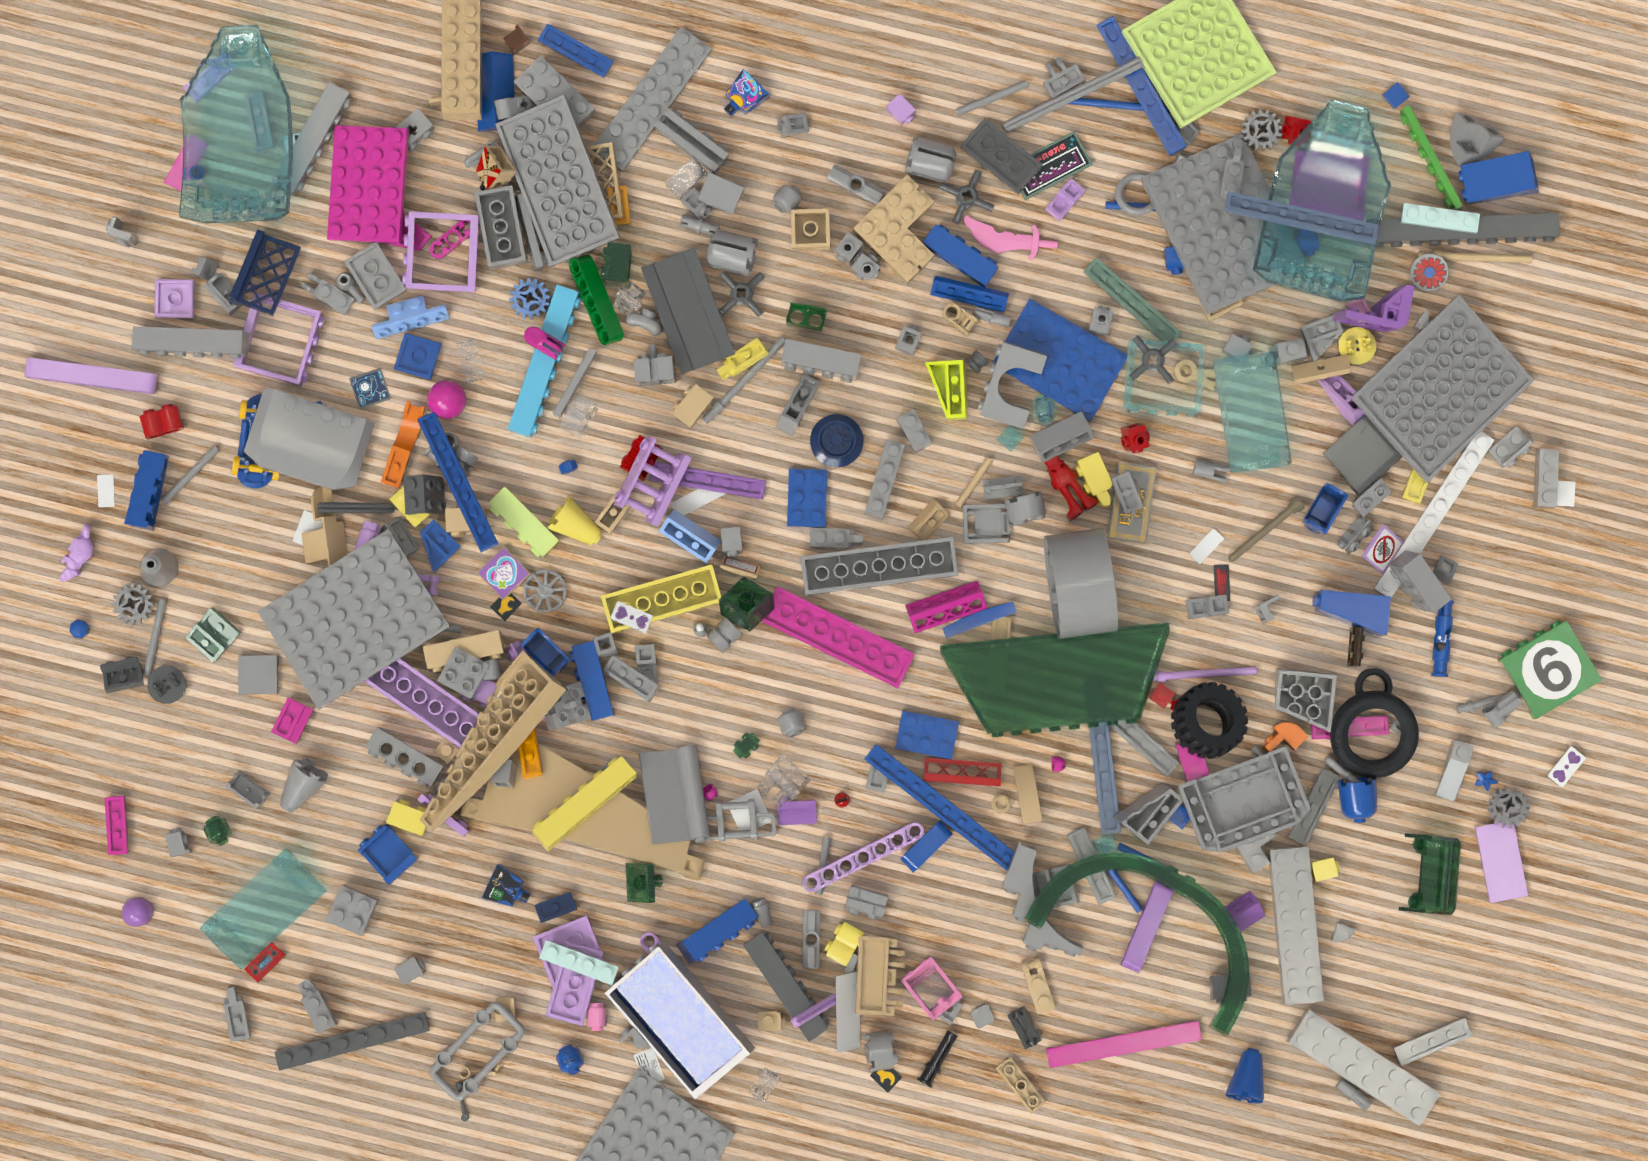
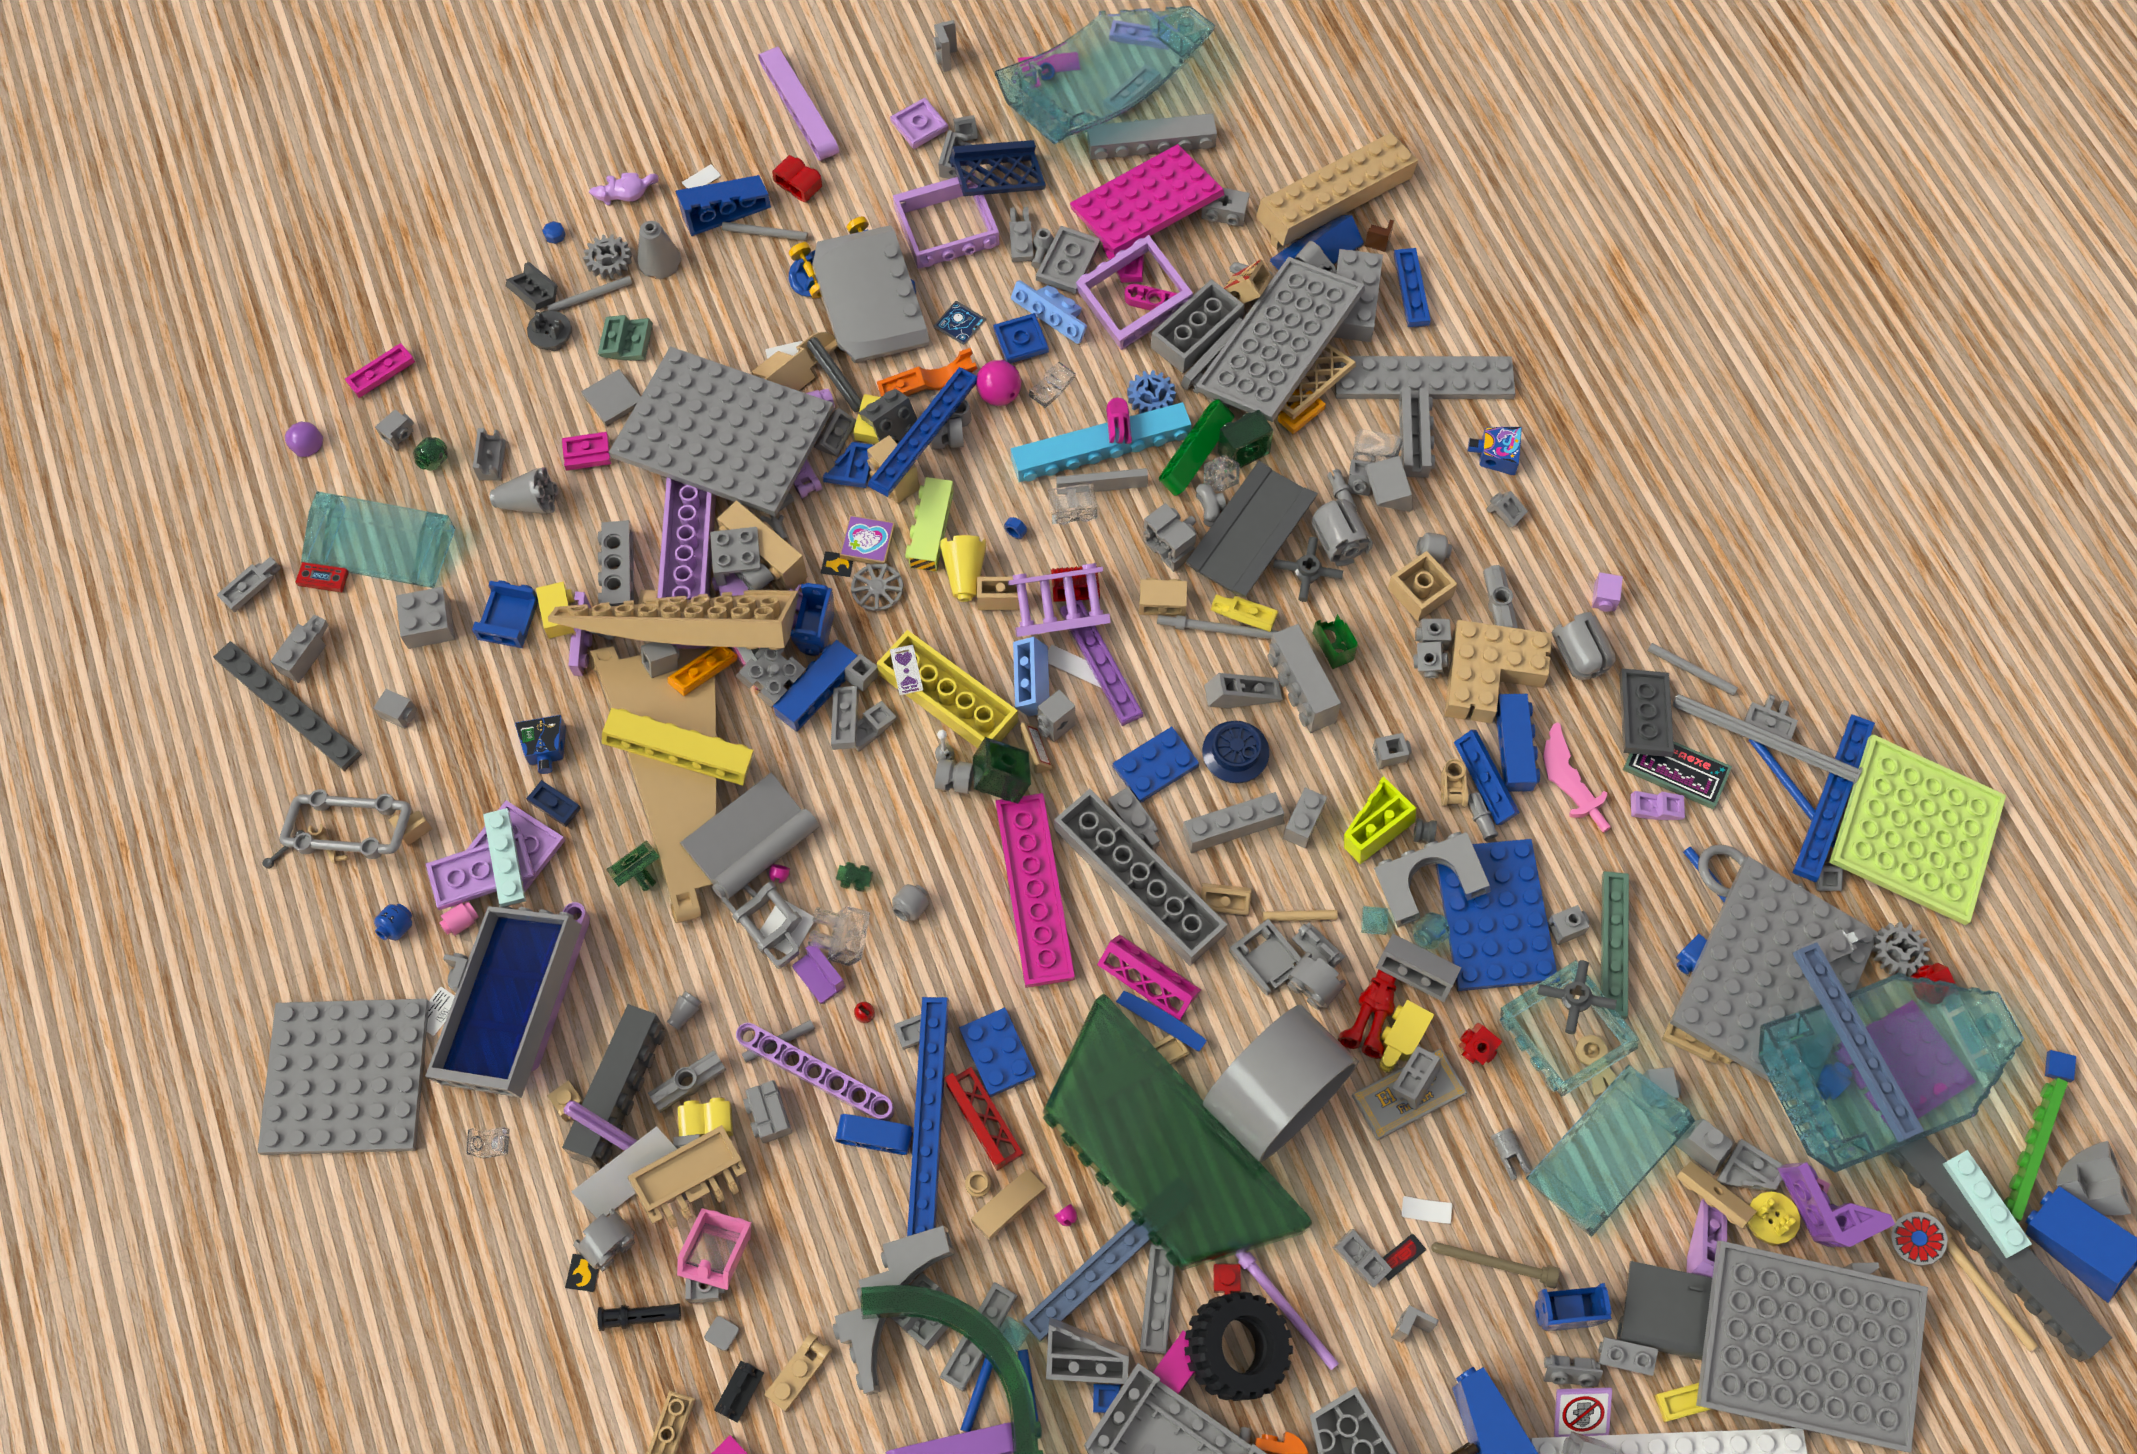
camera: 60 degrees right, 20 degrees down
(190, 341) = (888, 151): light grey brick -> none
(717, 931) = (630, 976): blue wedge -> none
(963, 205) = (1578, 709): dark grey bar -> none

